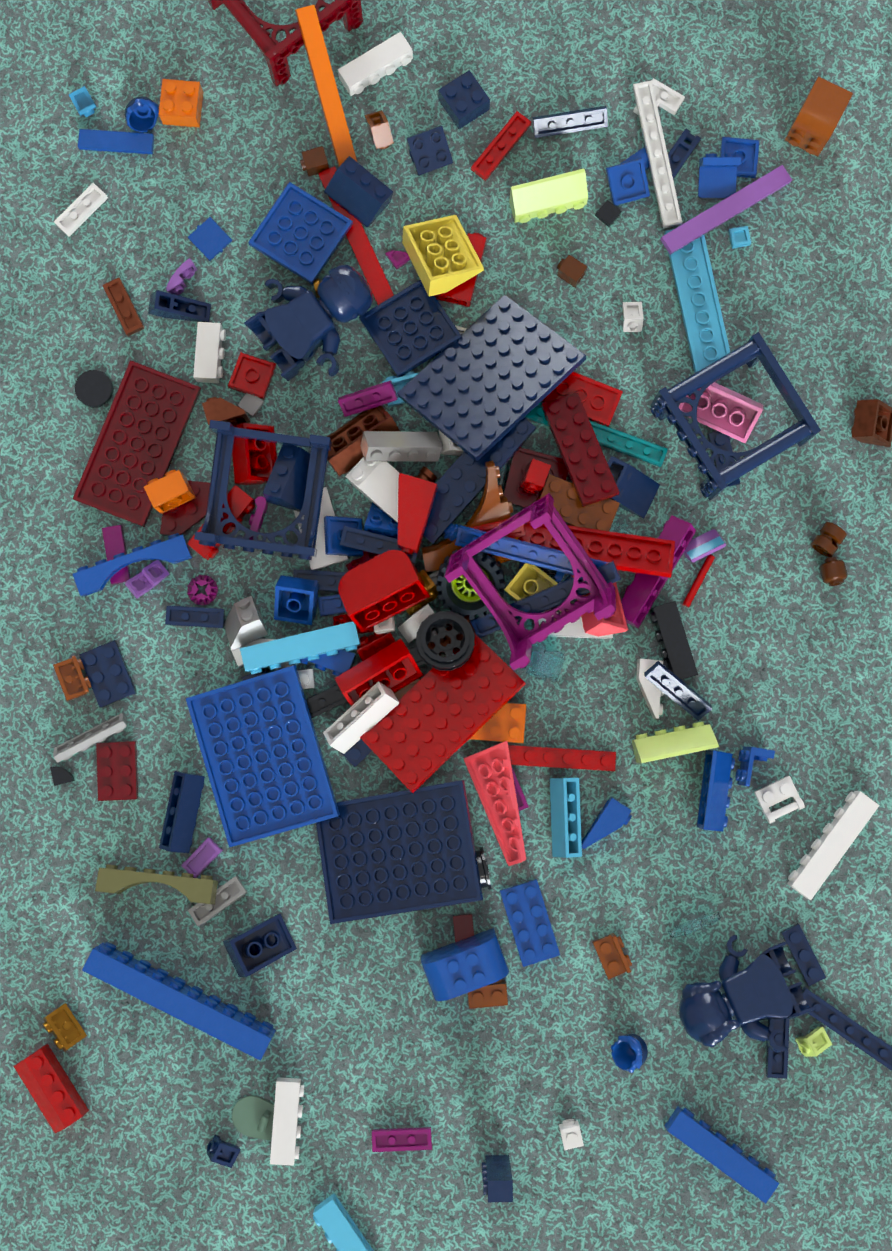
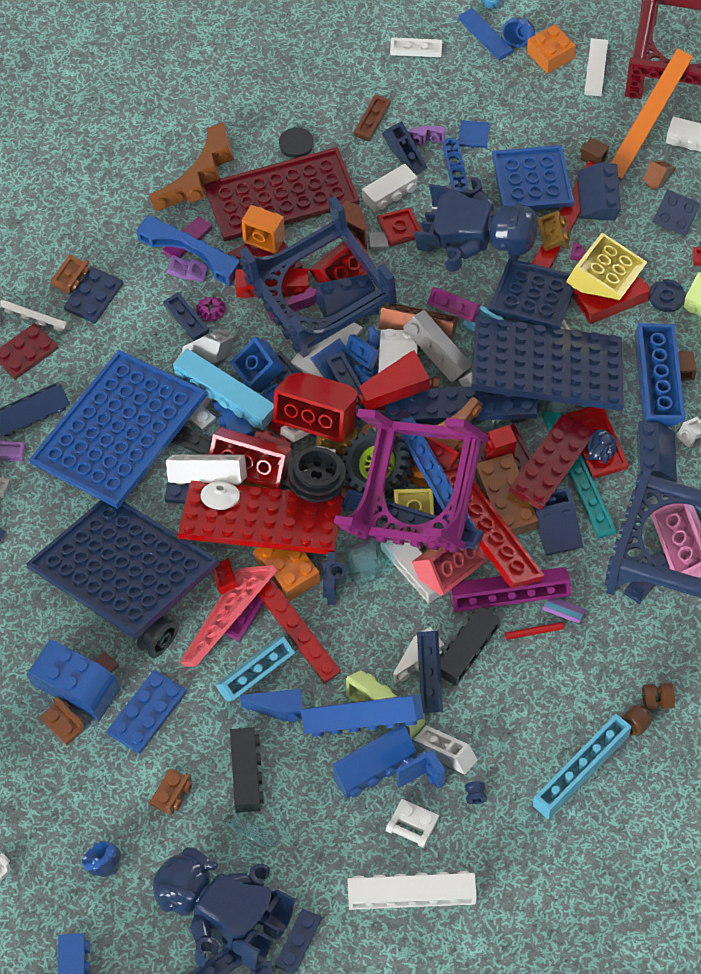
camera: 50 degrees right, 25 degrees down
(63, 490) = (204, 170): none -> dark orange arch
(228, 83) = (596, 67): none -> white tile
(231, 281) = (455, 167): none -> blue beam
(352, 496) = (373, 338): none -> blue hat
(357, 510) = (361, 351): none -> blue plate
(366, 261) = (554, 231): none -> pearl gold bracket
(404, 735) = (220, 495): none -> white dish
(473, 779) = (225, 576): none -> red plate
(495, 225) = (667, 295): none -> dark blue tile
(531, 694) = (330, 579): none -> dark blue plate
(567, 299) = (659, 373): none -> blue slope
(592, 397) = (601, 446): none -> dark blue hat
(627, 361) = (656, 450): none -> dark blue slope
(640, 888) = (245, 770): none -> black brick
(680, 773) = (362, 714): none -> blue brick
(743, 728) = (449, 750): none -> white slope
(794, 735) = (475, 792): none -> dark blue wheel
(839, 643) = (581, 766): none -> medium azure brick

